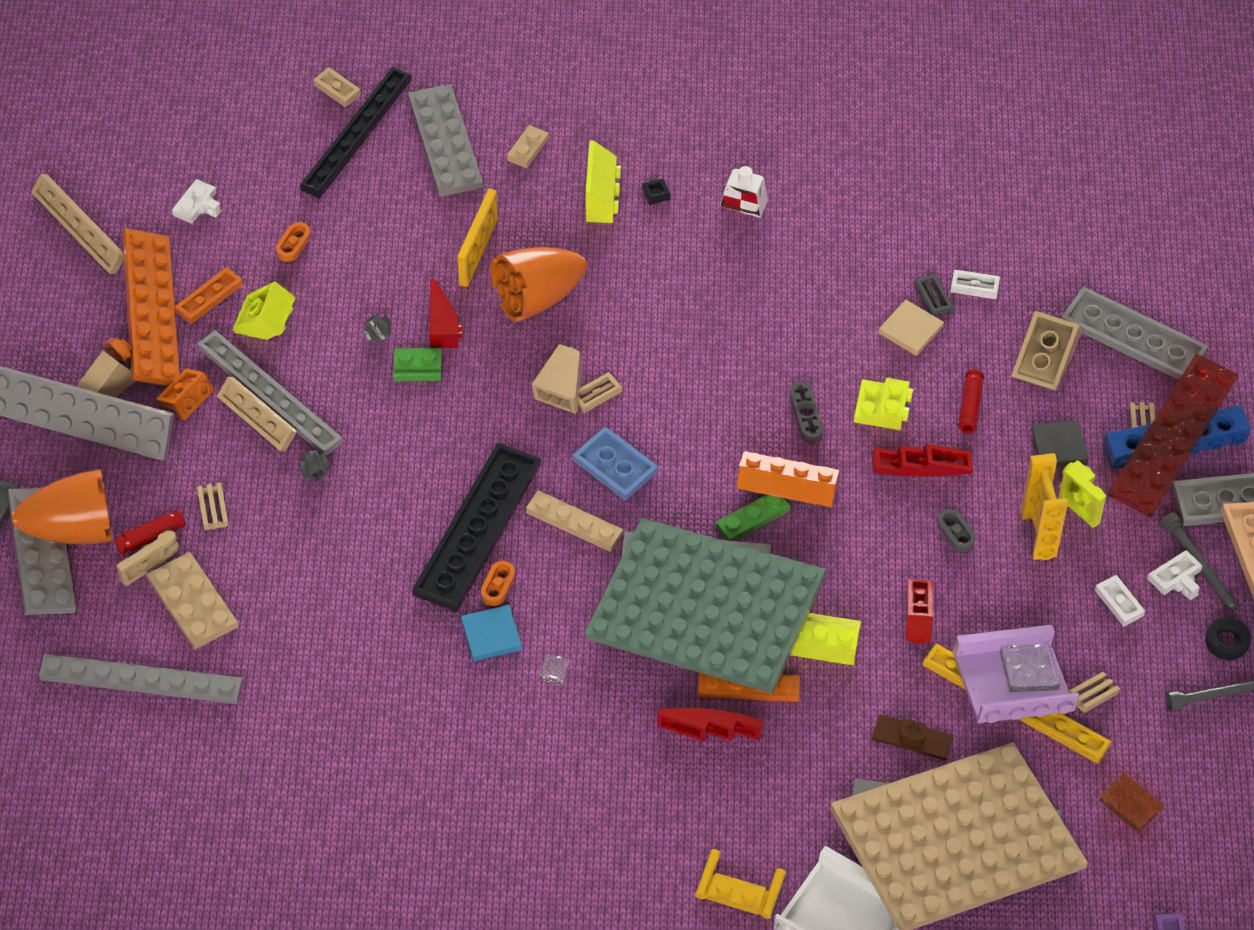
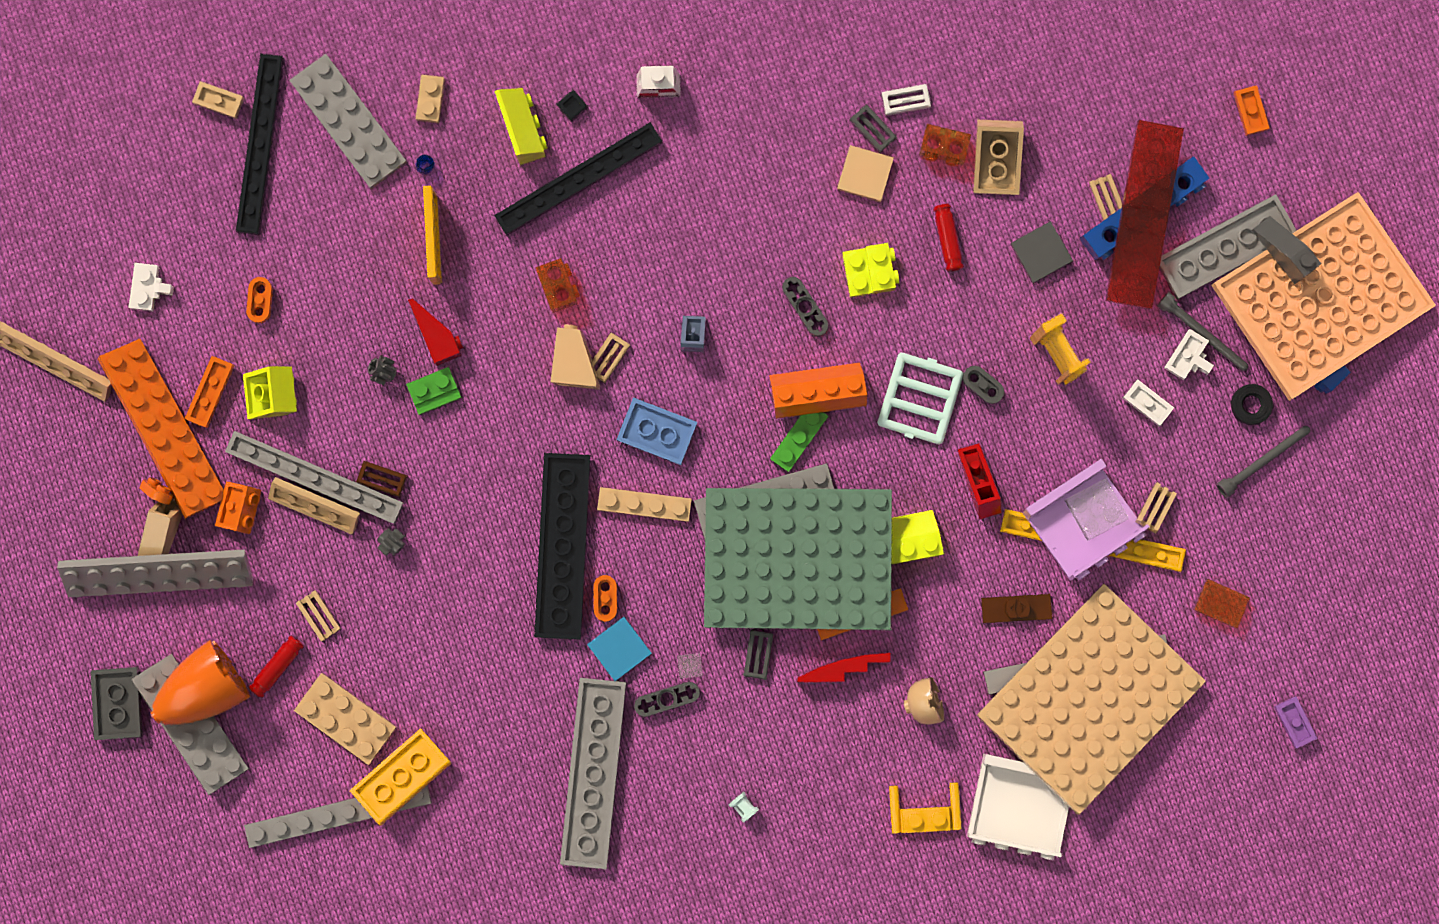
camera: 20 degrees left, 30 degrees up
(148, 558) = (288, 693): tan hinge -> none
(219, 663) = (400, 777): none -> yellow tile
(345, 428) = (363, 472): none -> reddish brown tile
(411, 730) = (593, 773): none -> light grey plate
(500, 187) = (421, 161): none -> clear blue hinge
(510, 684) = (648, 698): none -> dark grey beam
(535, 279) = (507, 263): orange cylinder -> none
(550, 811) = (743, 807): none -> light aqua bush
(575, 317) = (552, 287): none -> clear orange brick
(618, 702) = (757, 660): none -> dark grey tile
(647, 242) = (578, 179): none -> black plate
(685, 400) = (693, 333): none -> sand blue slope
(780, 779) = (924, 702): none -> tan cylinder
(872, 500) = (943, 417): none -> light aqua bar
(928, 461) = (927, 321): red slope -> none
(998, 326) = (945, 138): none -> clear orange brick
(1081, 494) = (1077, 304): neon yellow plate -> none
(1133, 333) = (1070, 104): light grey plate -> none

